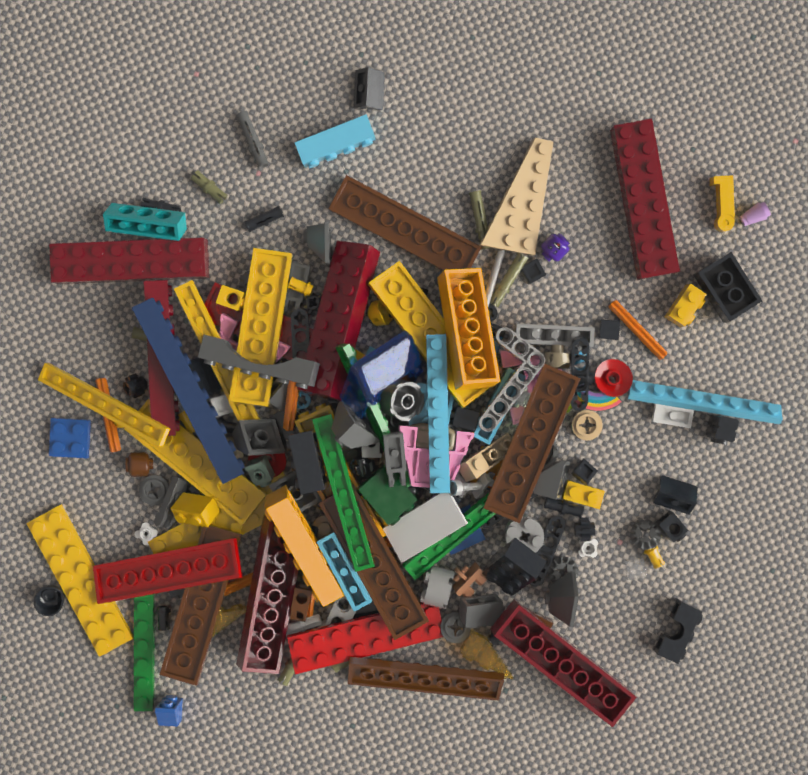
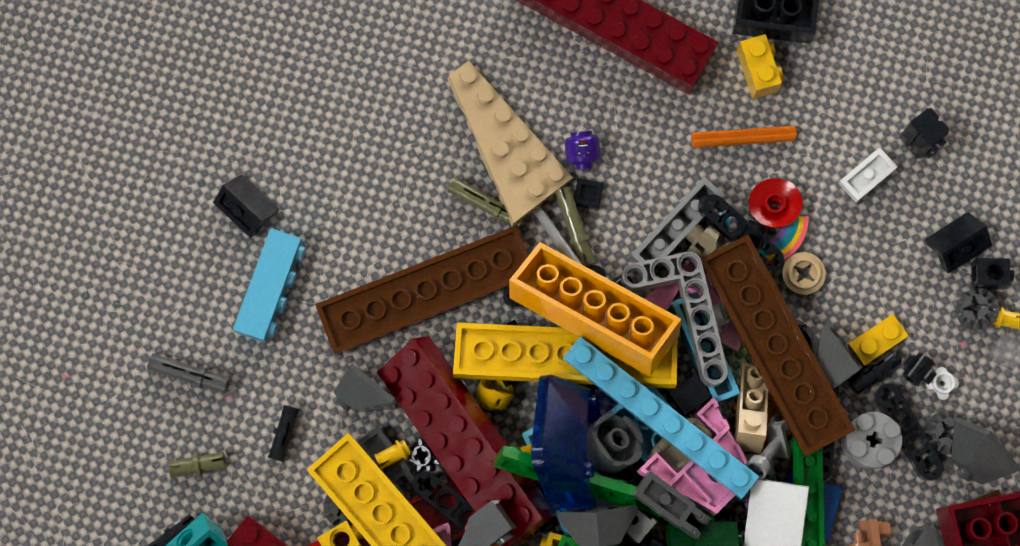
camera: 45 degrees left, 10 degrees down
(513, 567) = (899, 478): black brick -> none
(584, 472) = (853, 318): black tile -> none
(609, 329) = (718, 166): black tile -> none
(705, 402) = (881, 129): medium azure plate -> none

